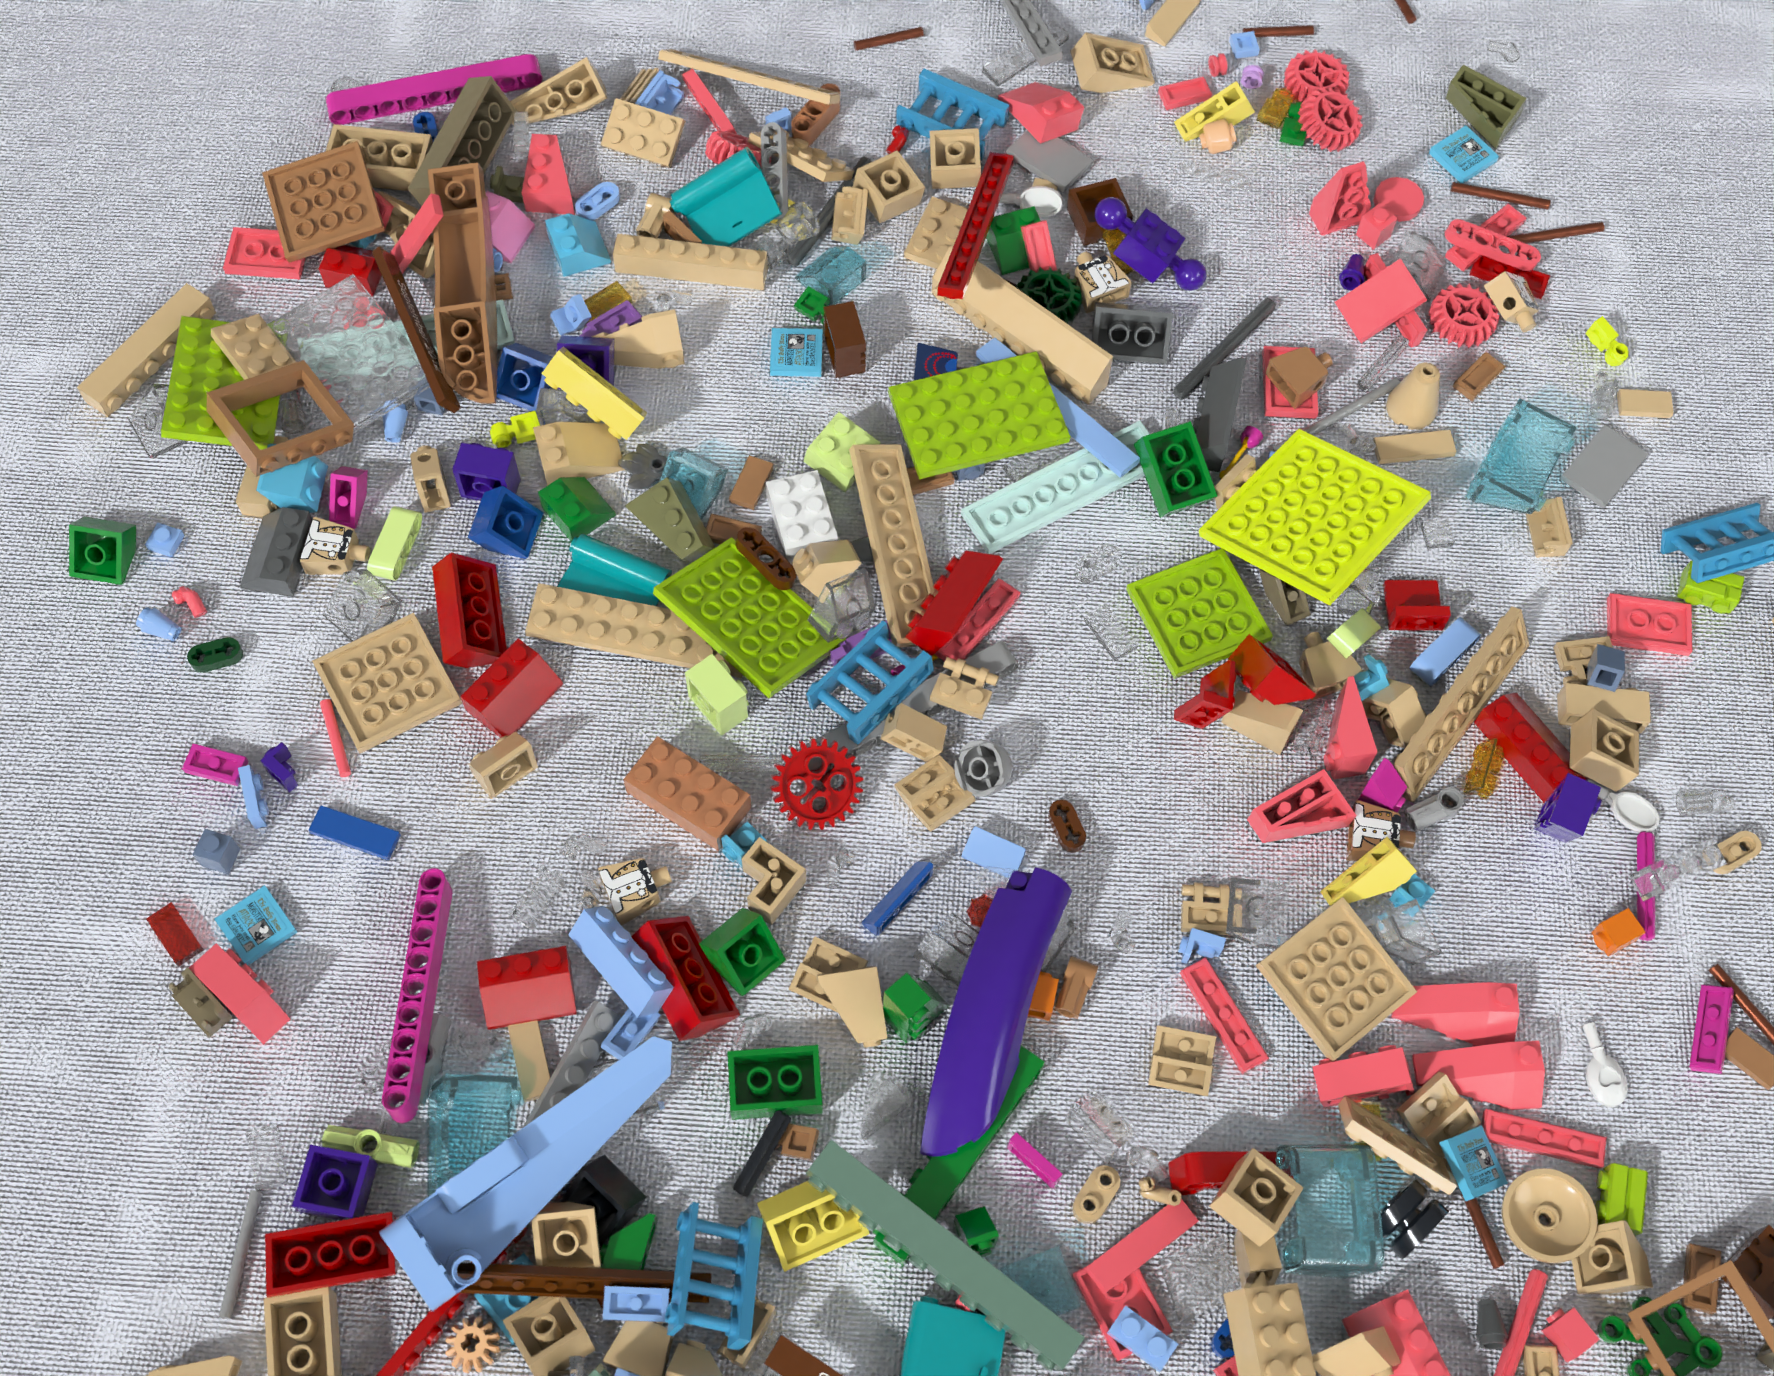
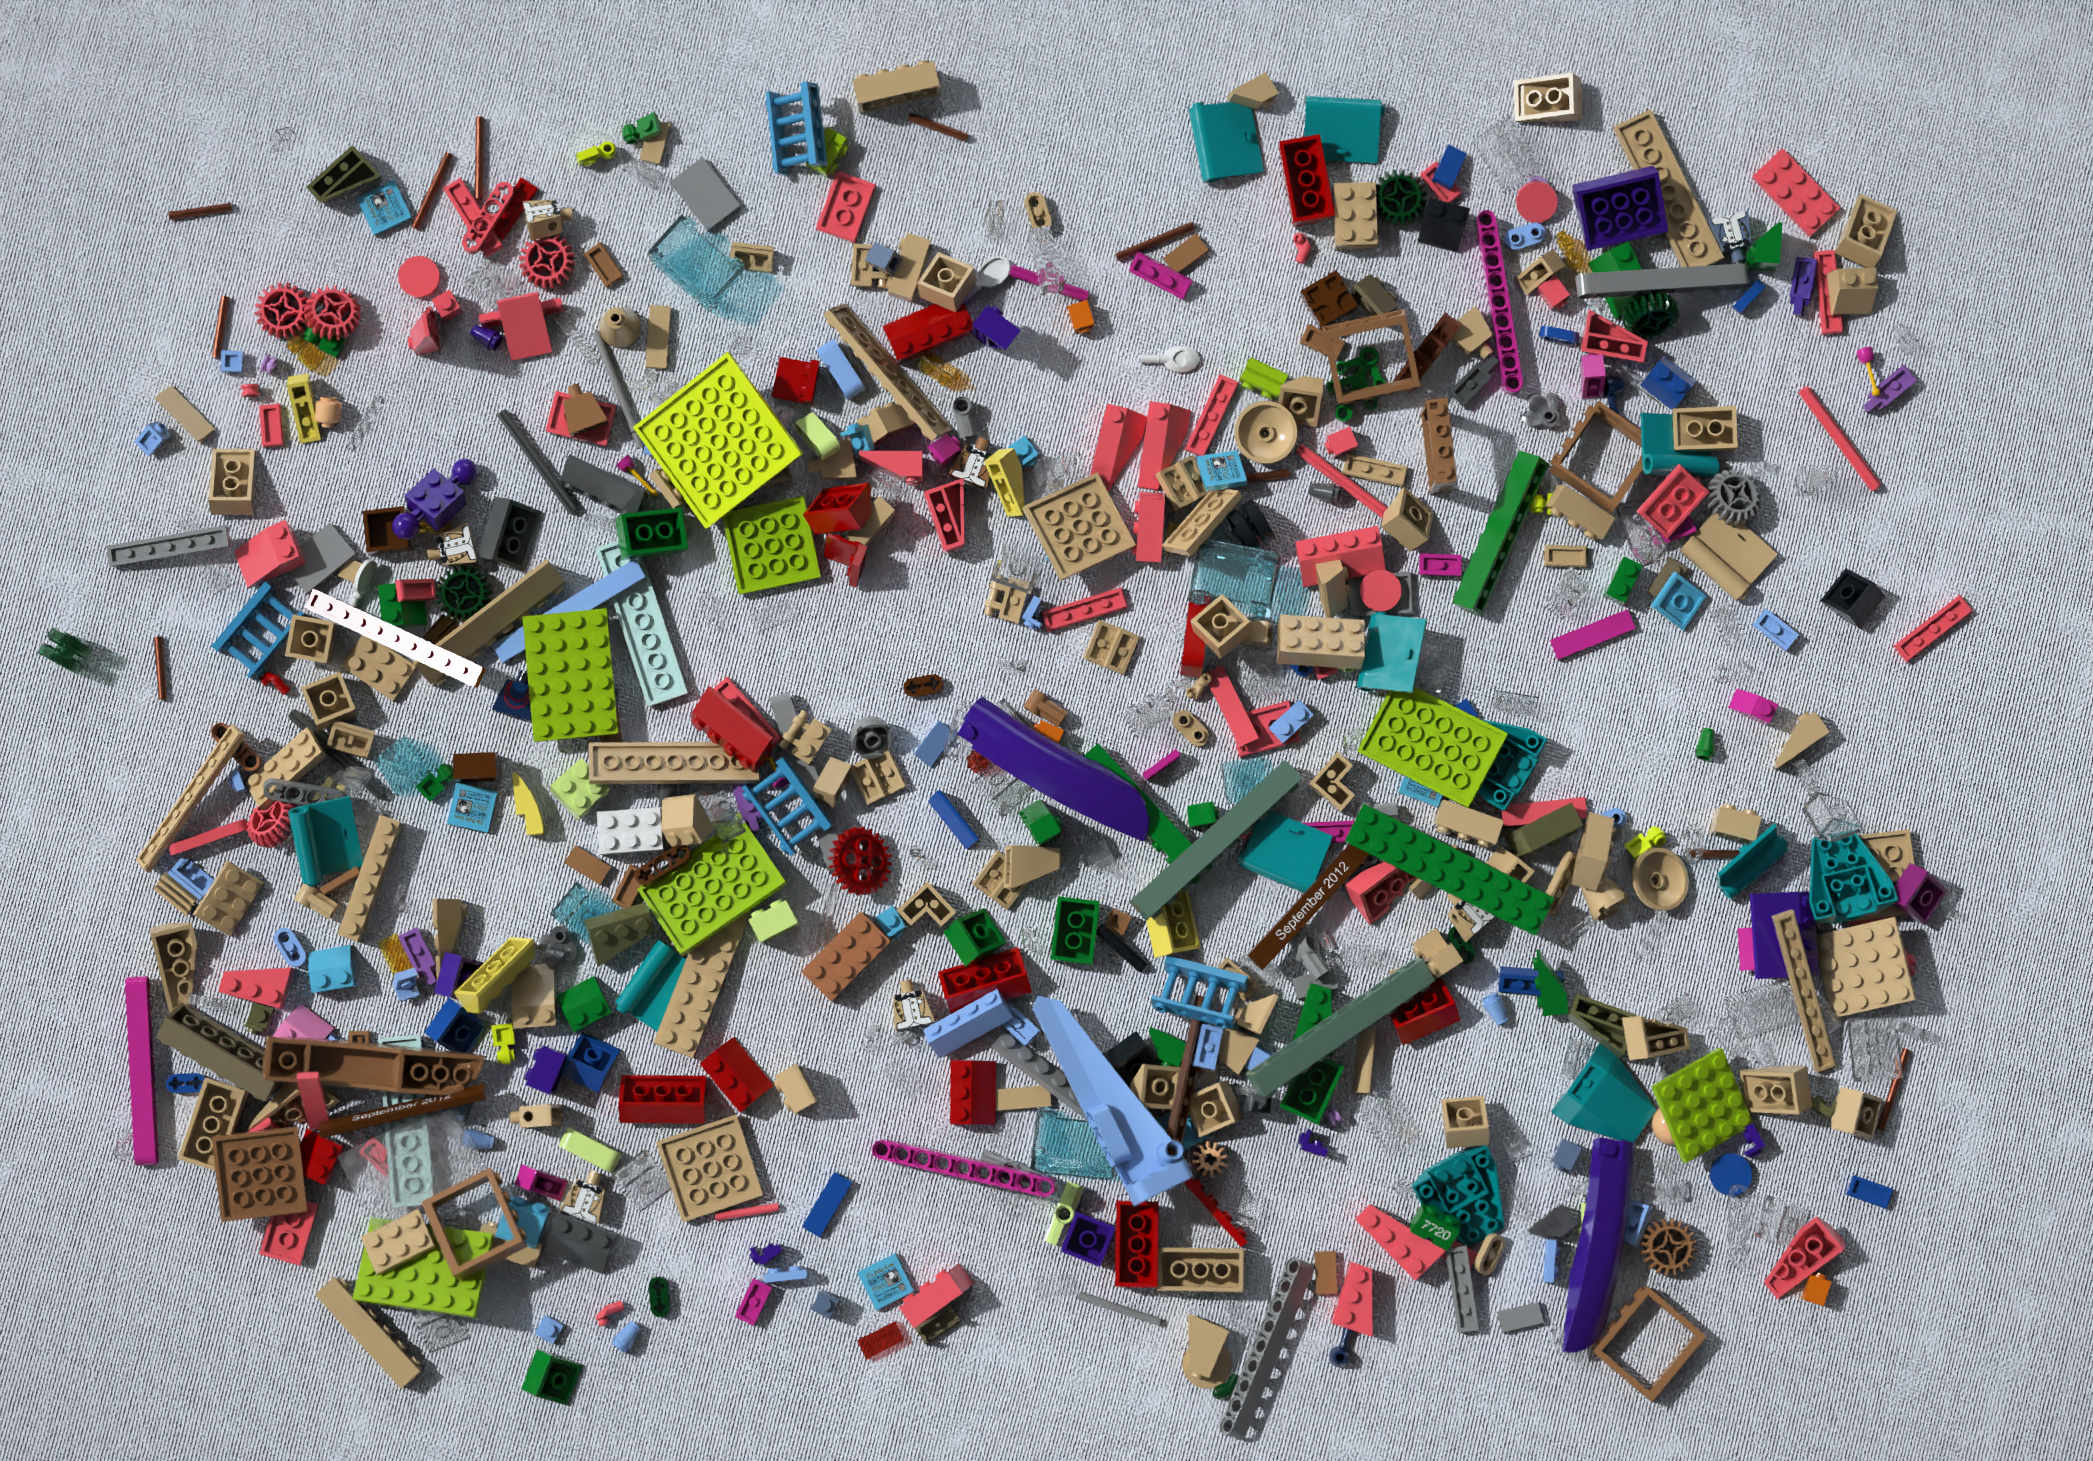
camera: 75 degrees left, 20 degrees up
(810, 404) = (527, 806): none -> light yellow slope
(1660, 388) = (646, 129): none -> green plate

